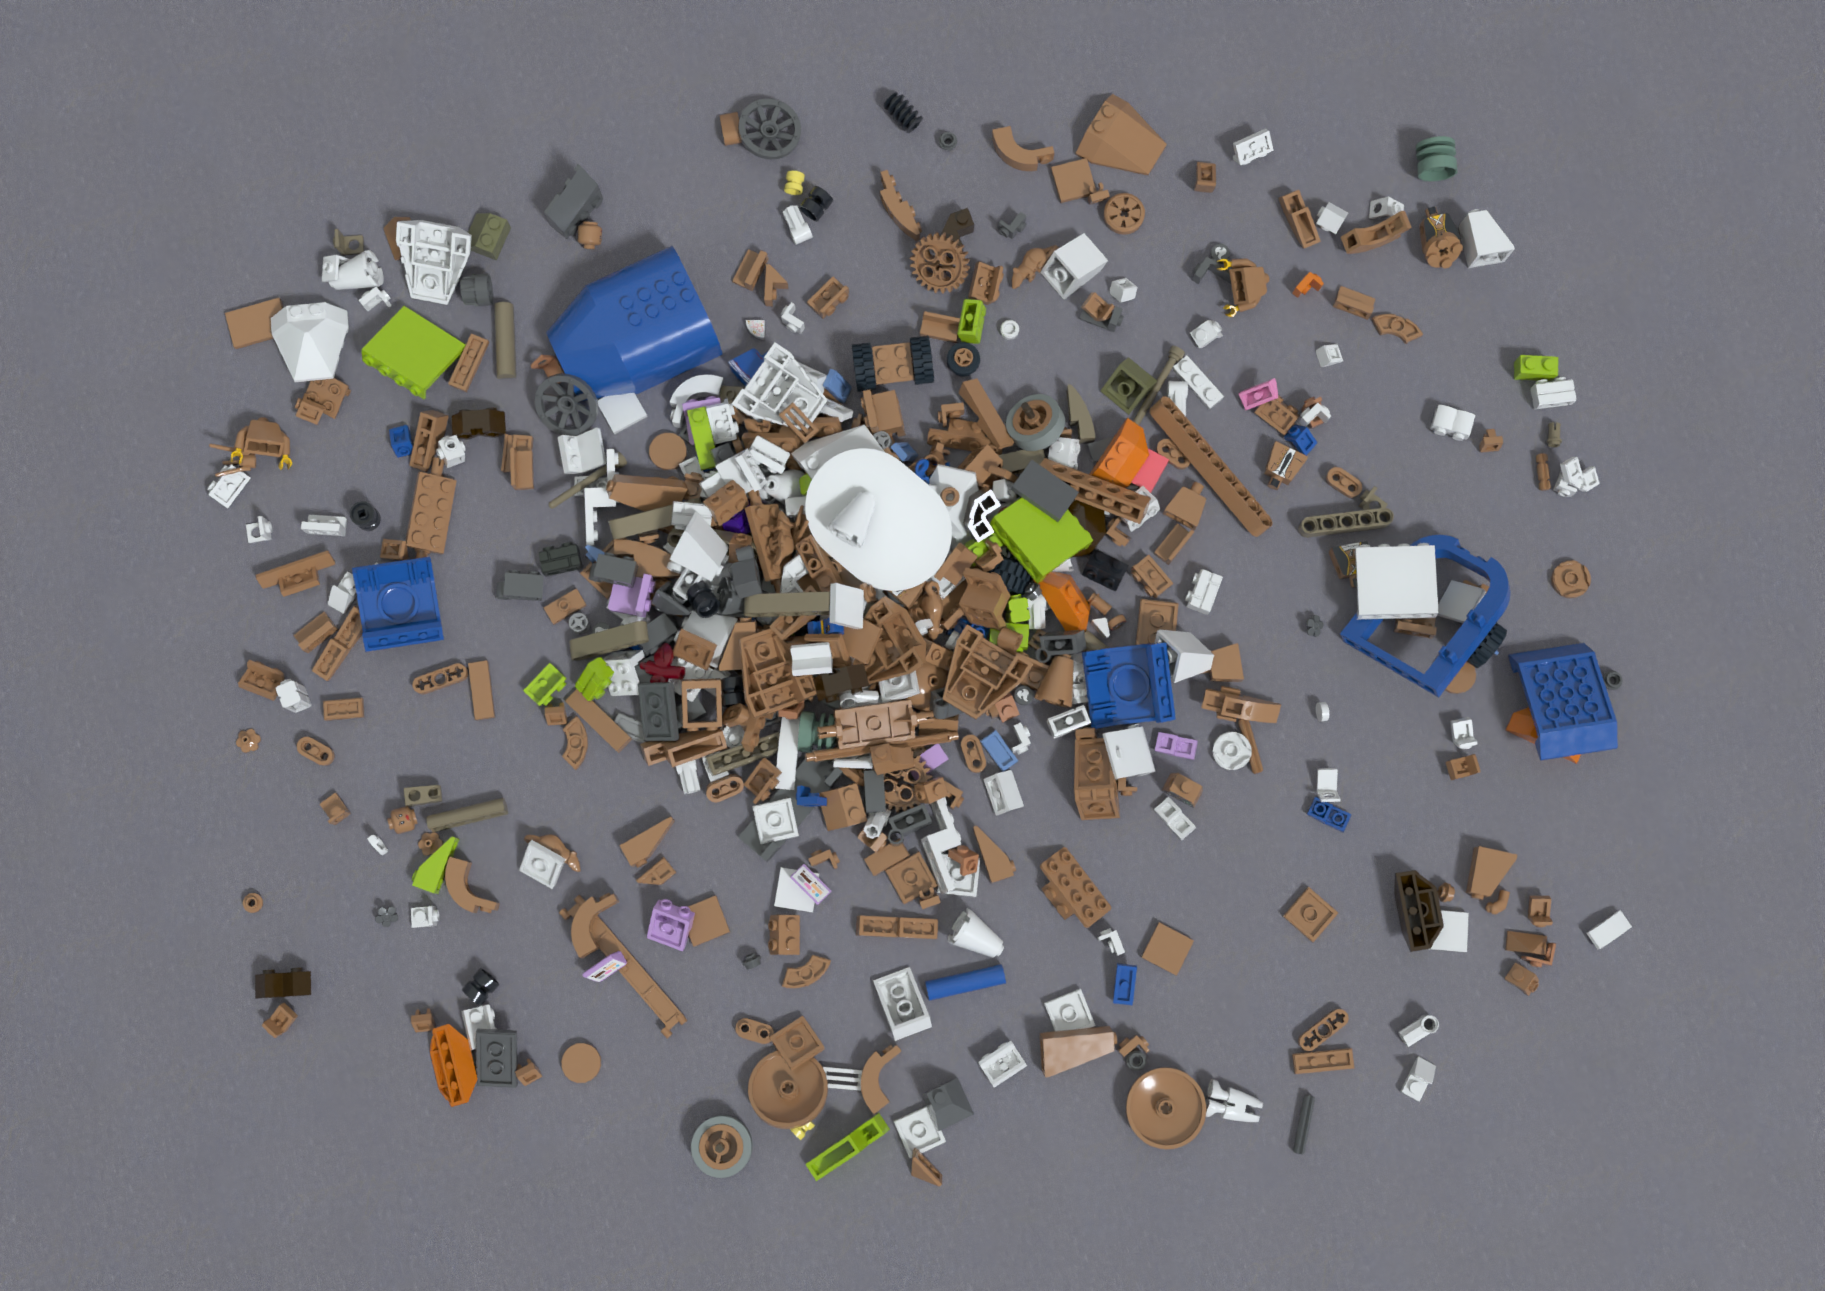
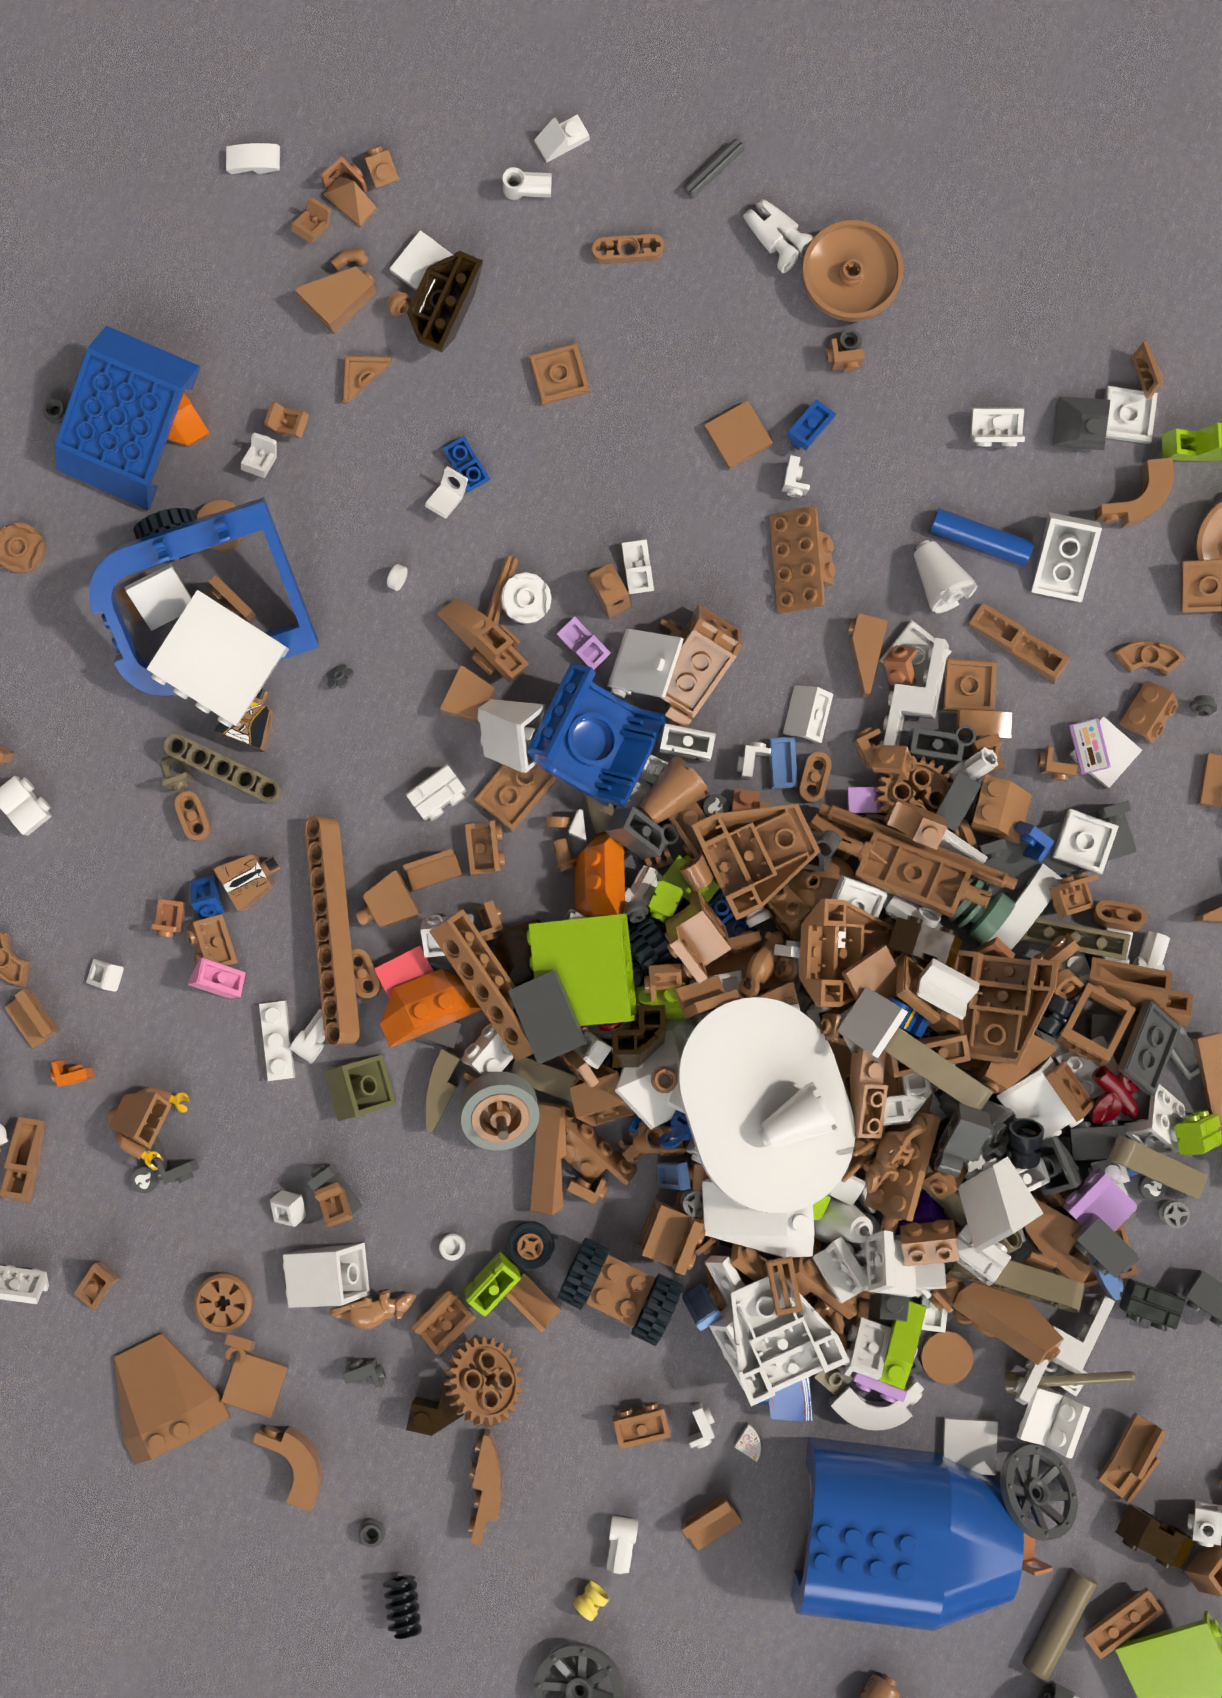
camera: 145 degrees left, 5 degrees up
(565, 606) = (1177, 1245): medium nougat plate -> none
(773, 281) = (695, 1490): medium nougat slope -> none
(816, 203) = (591, 1554): black wheel -> none
(851, 1079) = (1182, 511): white tile -> none
(928, 900) = (967, 647): medium nougat tile -> none
(1069, 1012) = (889, 434): white tile -> none
(1074, 1047) = (908, 392): slope -> none
(1105, 570) = (530, 889): black bracket -> none
(1175, 355) = (281, 1089): dark tan piece -> none
(1206, 333) = (227, 1092): white bracket -> none
(1309, 414) = (178, 916): white bracket -> none
(1323, 1061) = (649, 218): medium nougat tile -> none
(1438, 831) = (360, 372): none -> medium nougat tile

